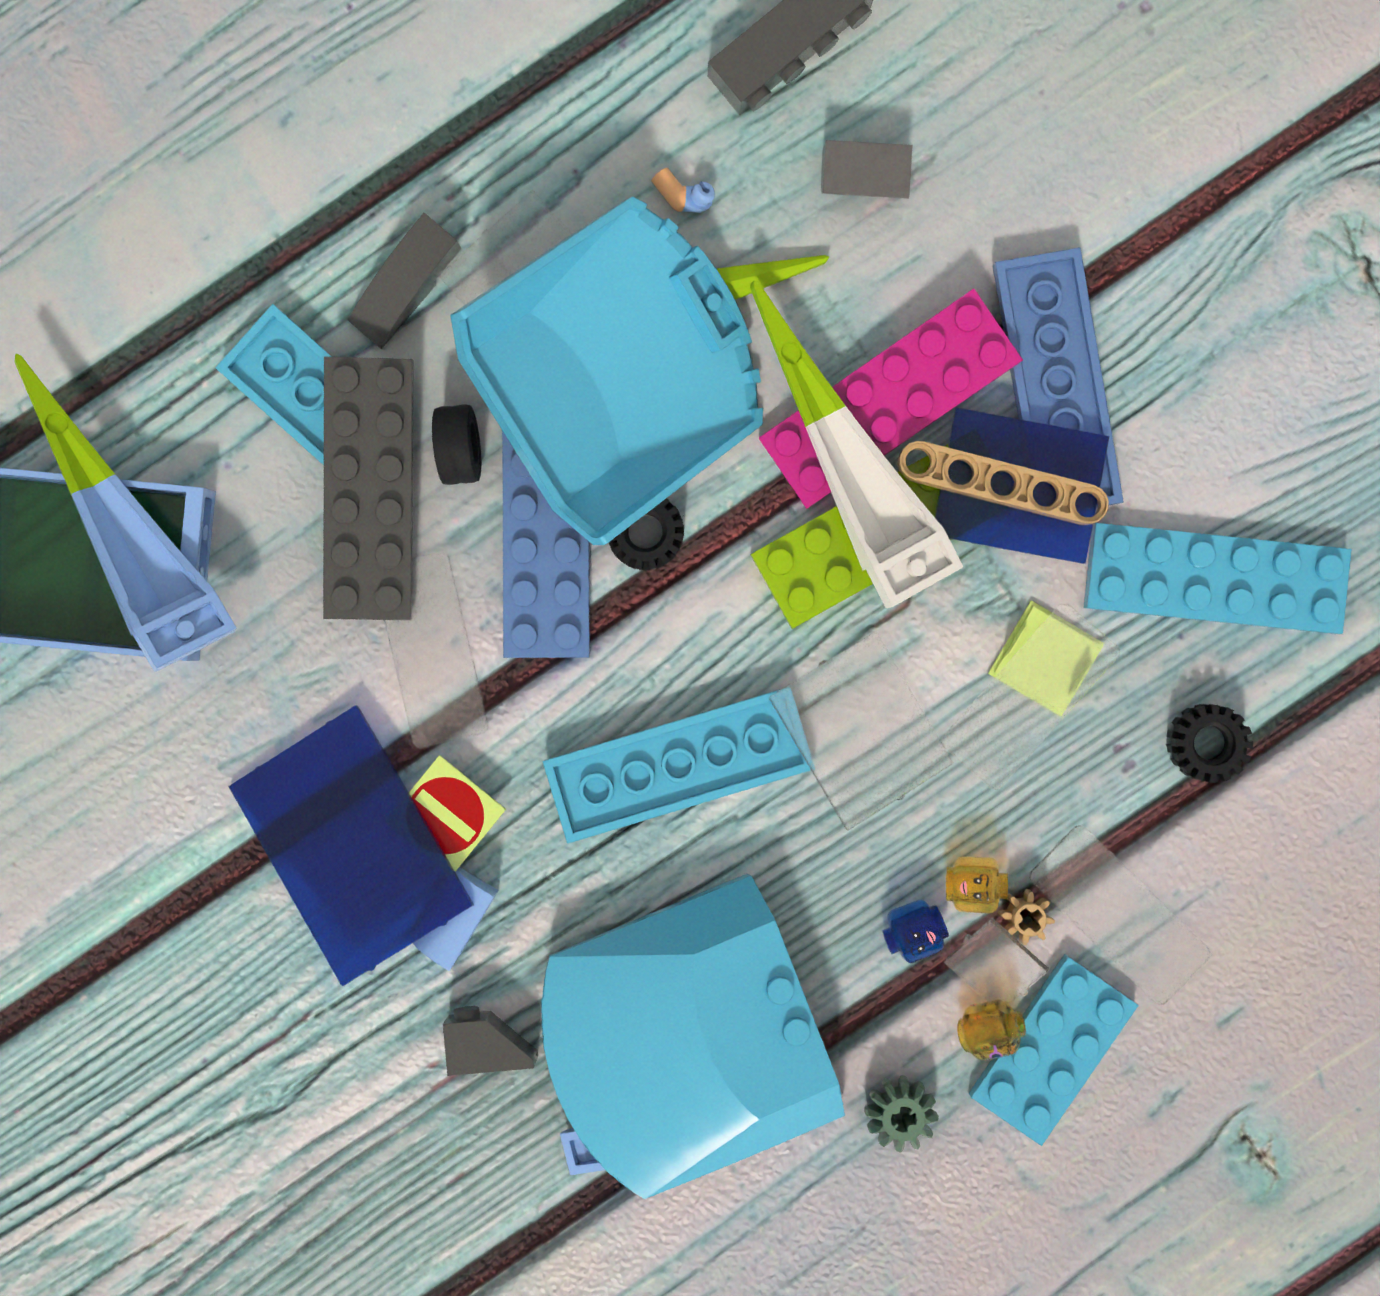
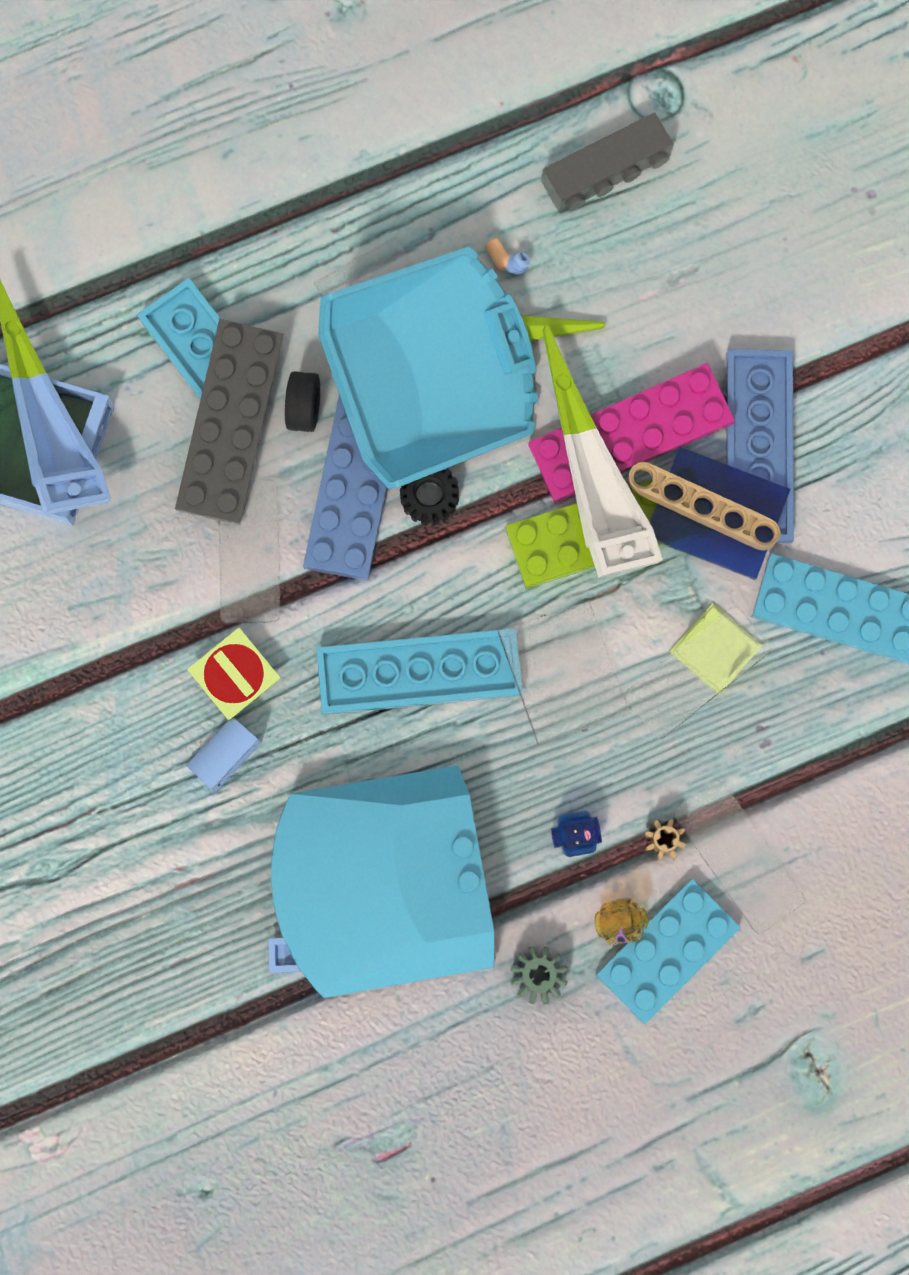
camera: 10 degrees right, 10 degrees down
(350, 845) = (156, 683): clear blue piece -> none
(404, 280) = (289, 280): dark grey slope -> none
(483, 1044) = (223, 854): dark grey slope -> none
(866, 169) = (644, 265): flat silver brick -> none
(976, 885) = (630, 807): clear yellow head -> none
(996, 963) = (634, 871): clear piece -> none
(1234, 742) = (849, 729): black tyre -> none

